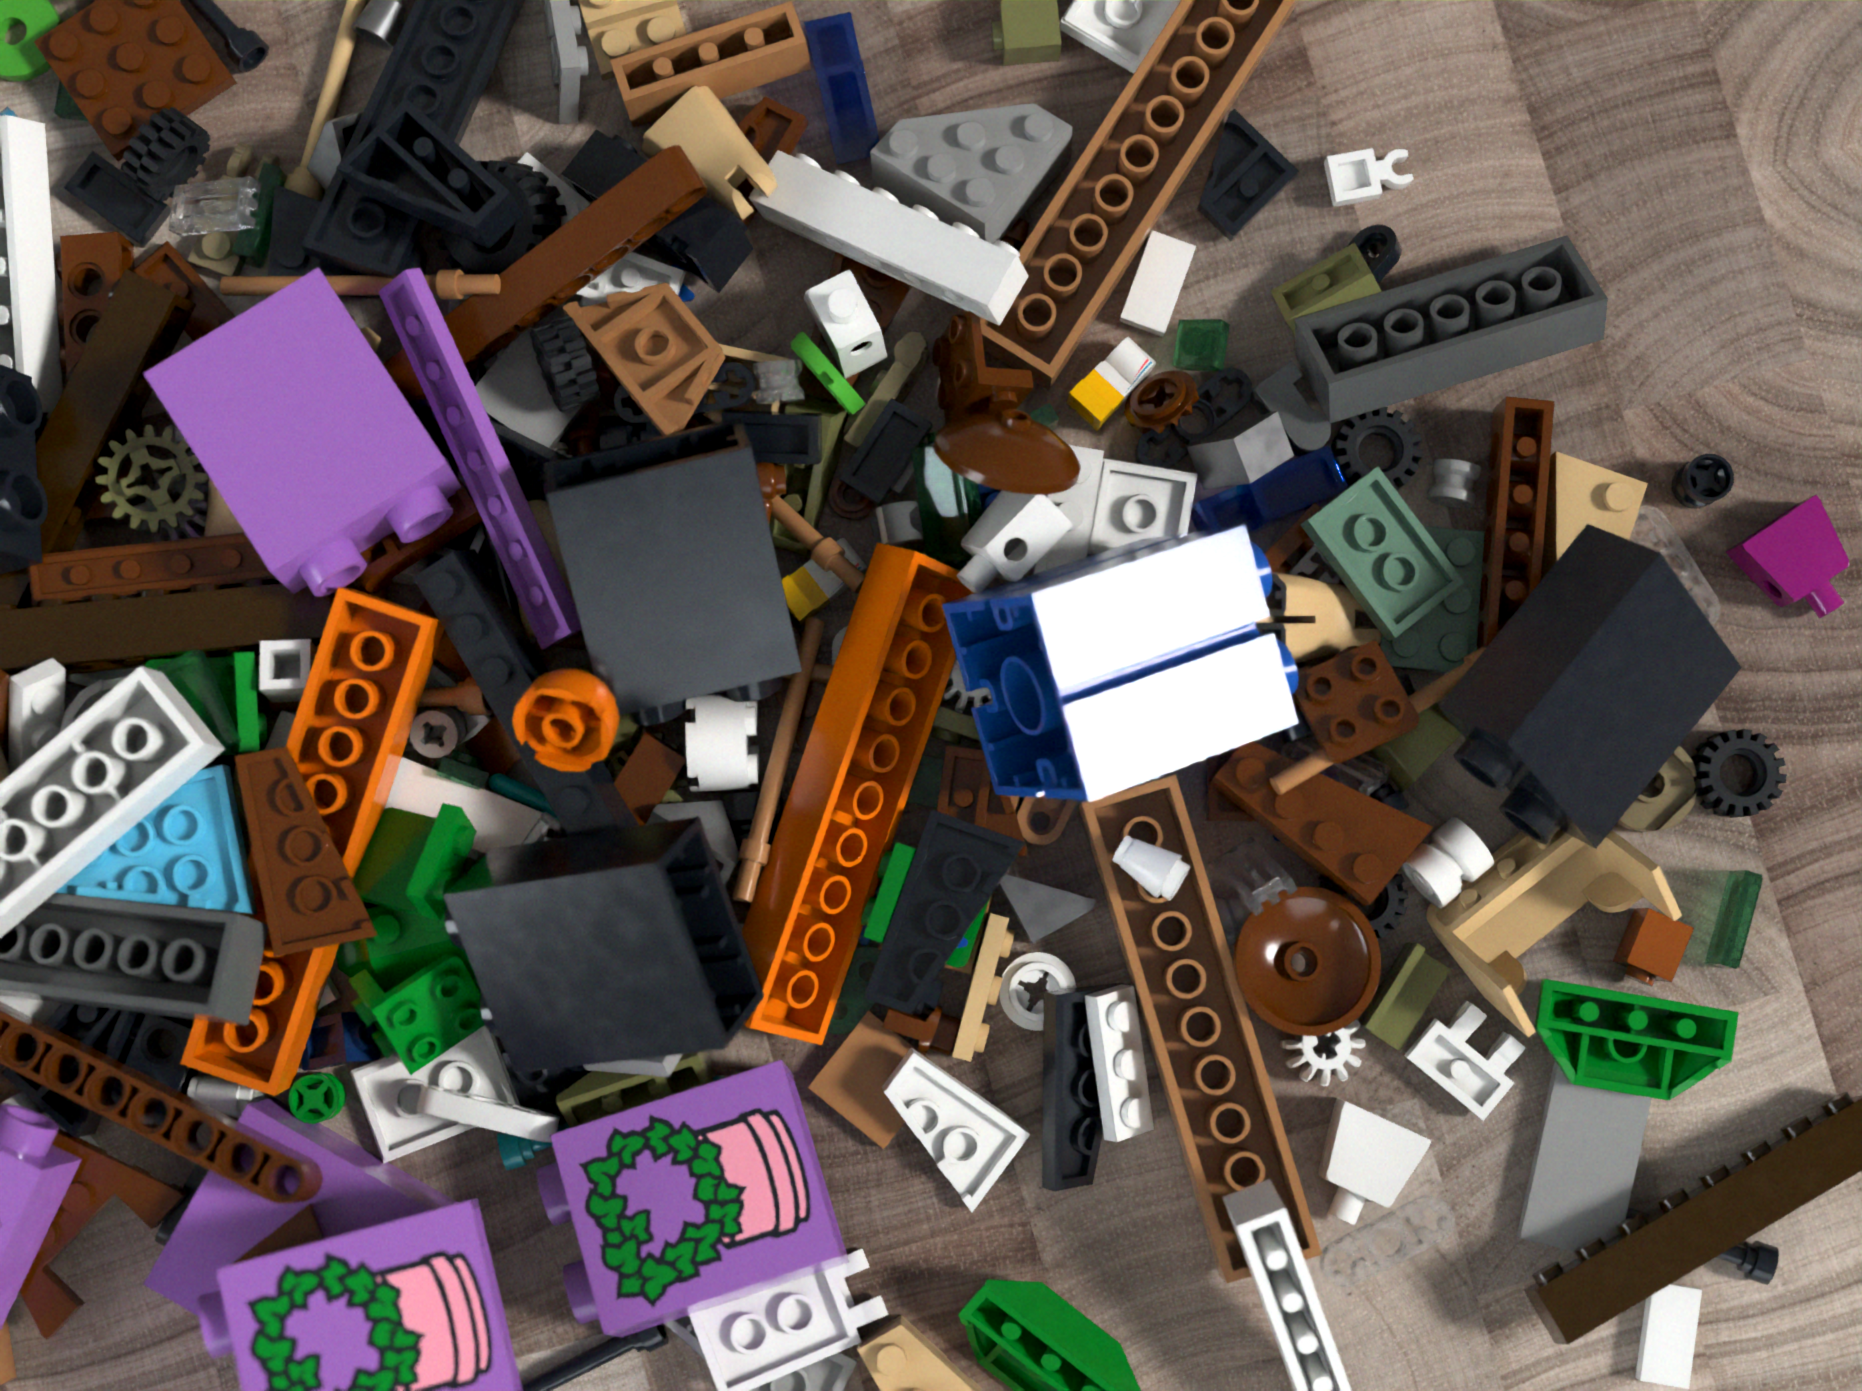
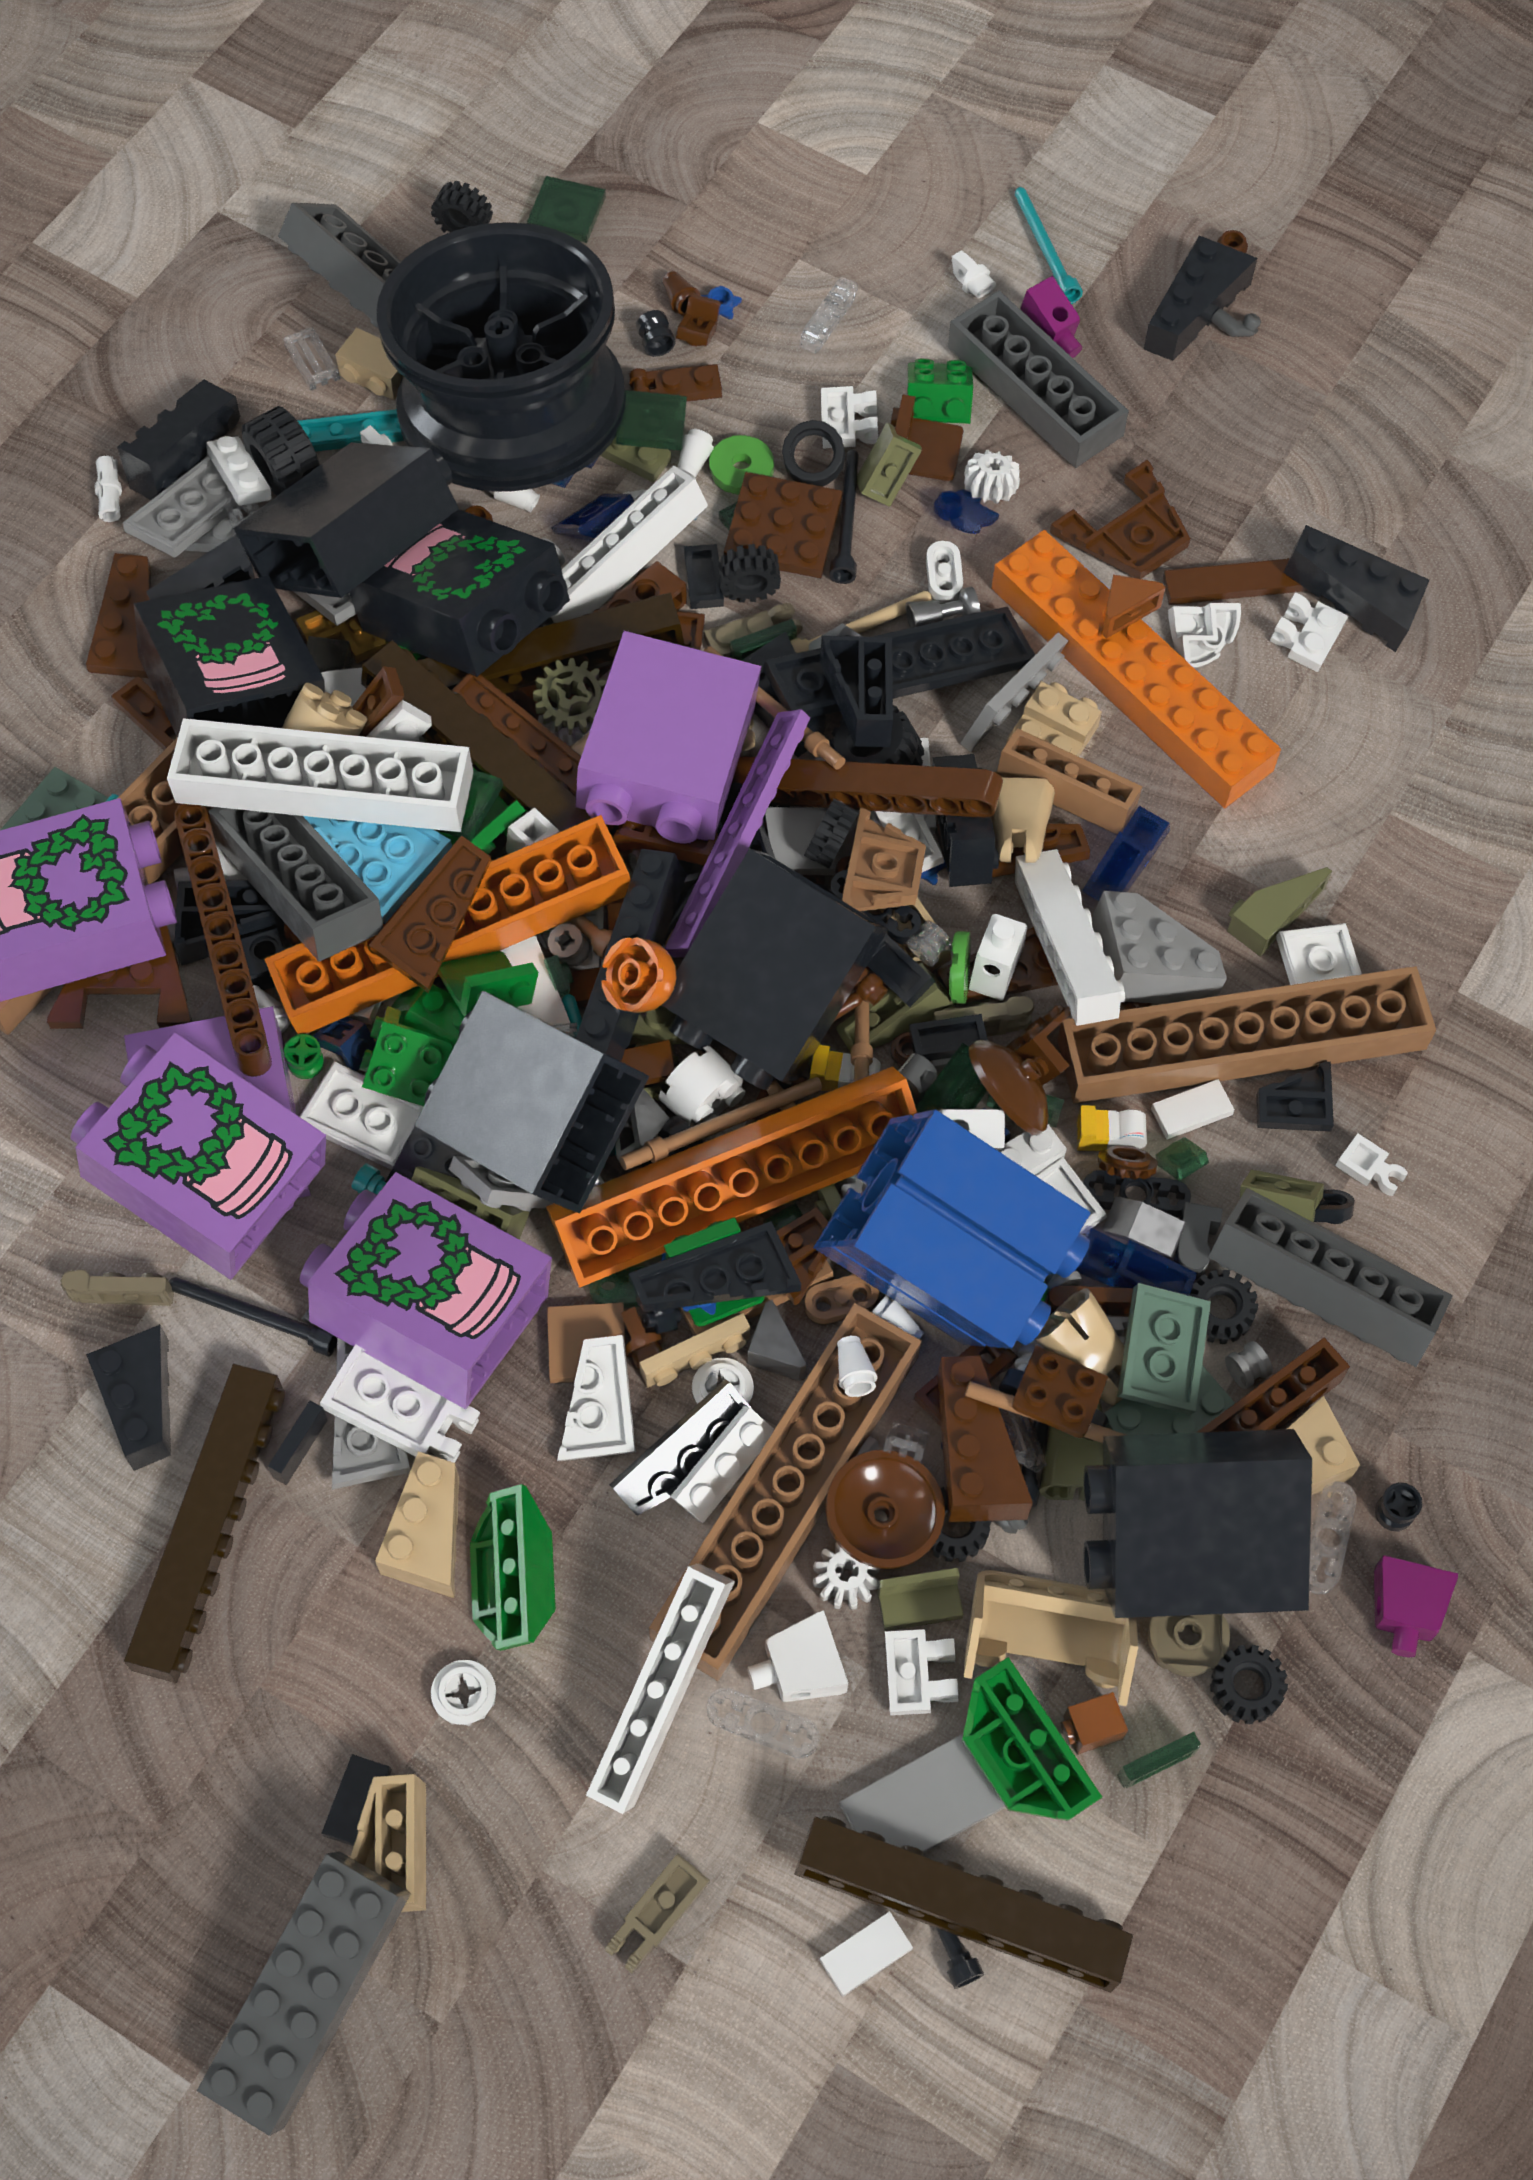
camera: 50 degrees right, 20 degrees down
(213, 215) = (740, 619): clear tile -> none
(487, 1113) = (374, 1139): white beam -> none
(1452, 857) = (1023, 1551): white wheel -> none

